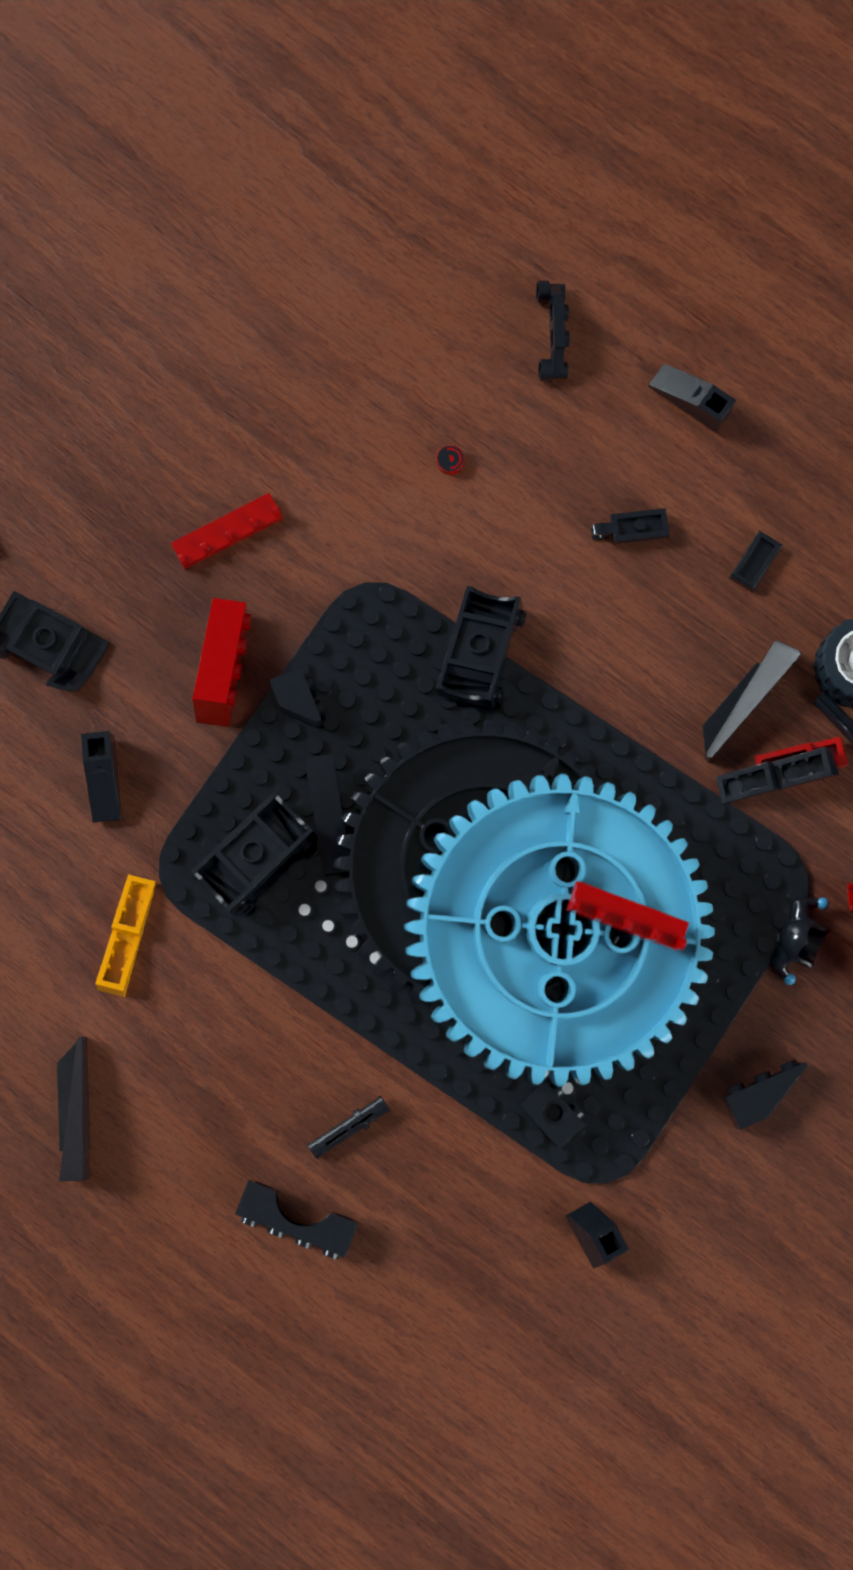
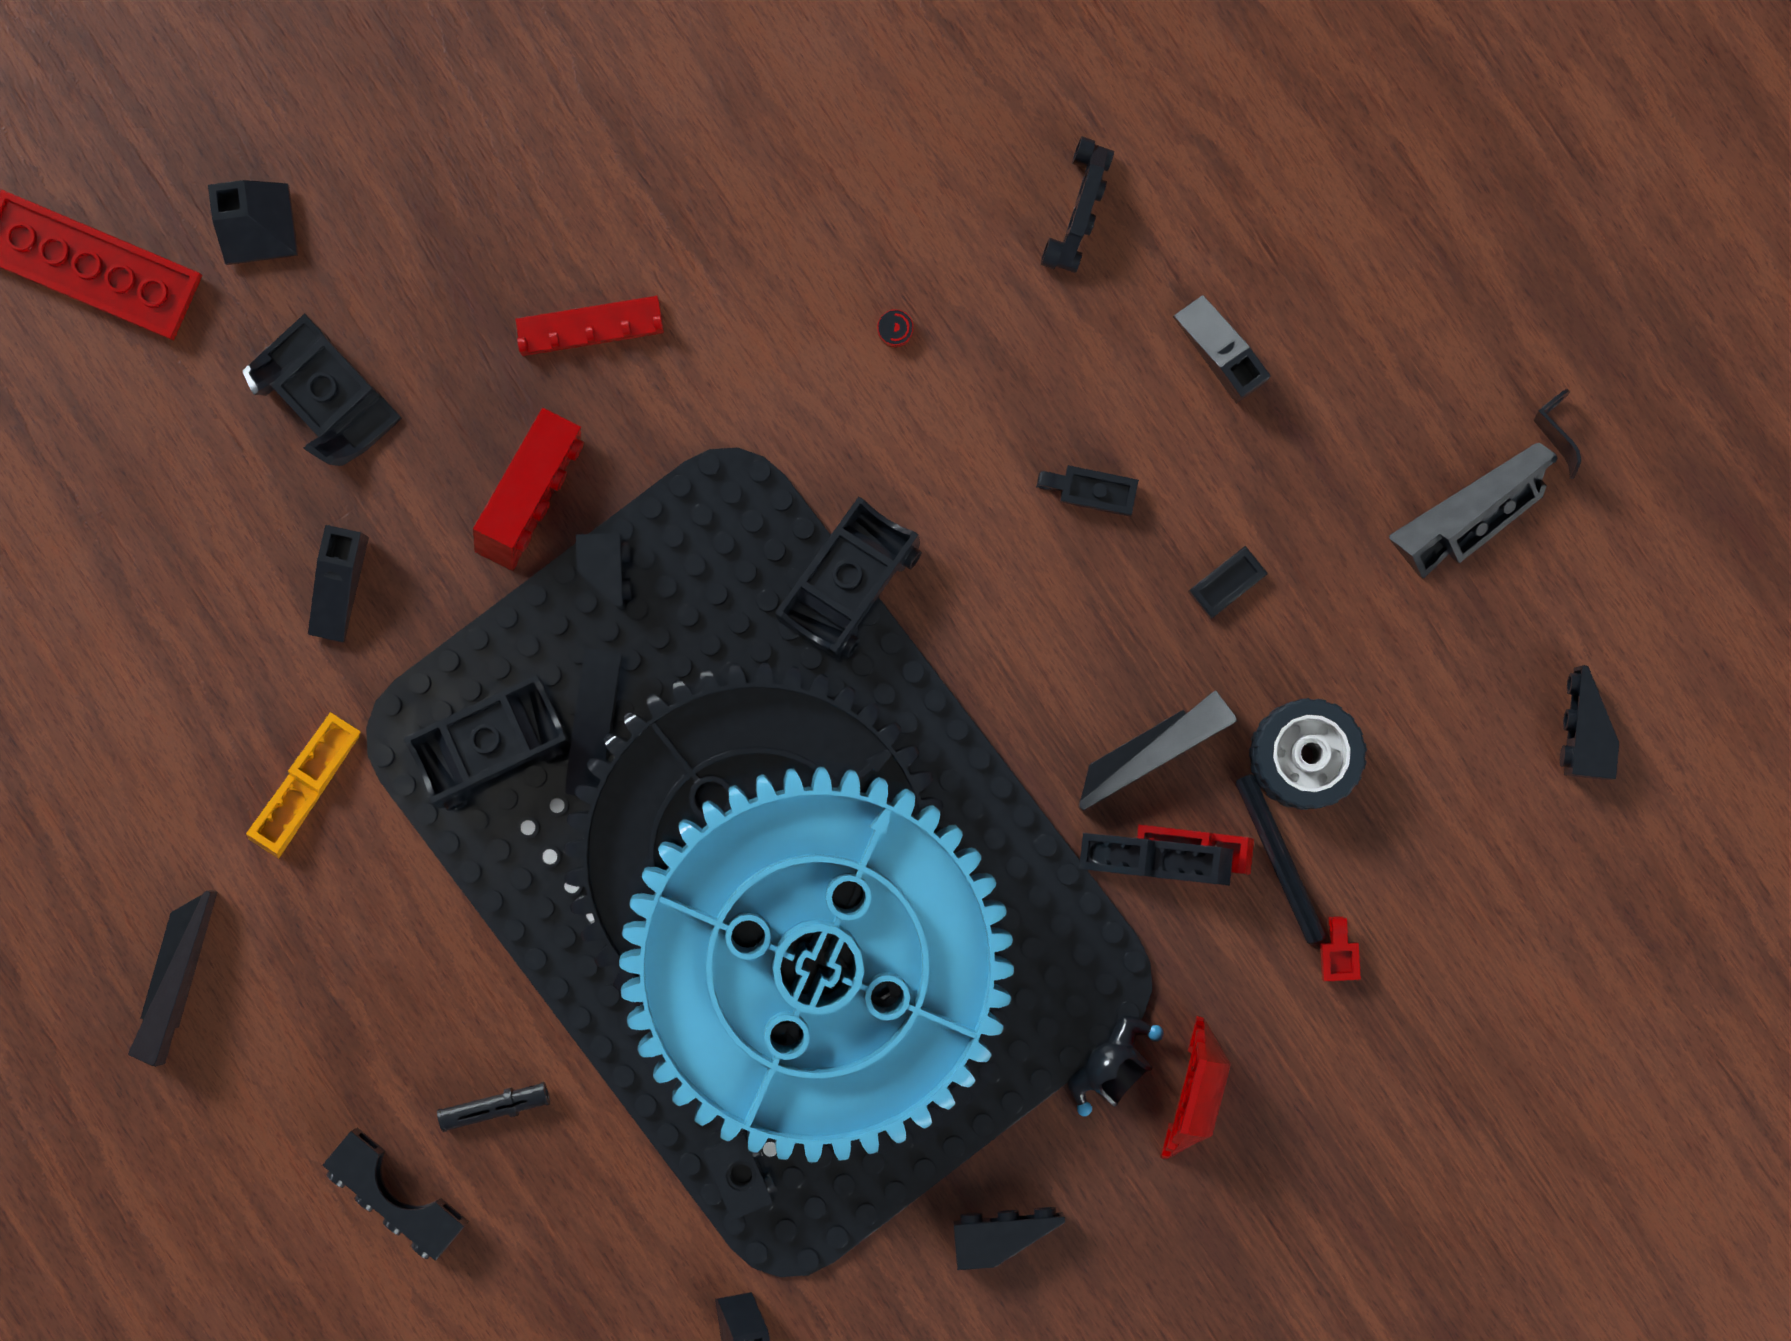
camera: 15 degrees right, 5 degrees up
(628, 916) = (900, 979): red hinge -> none

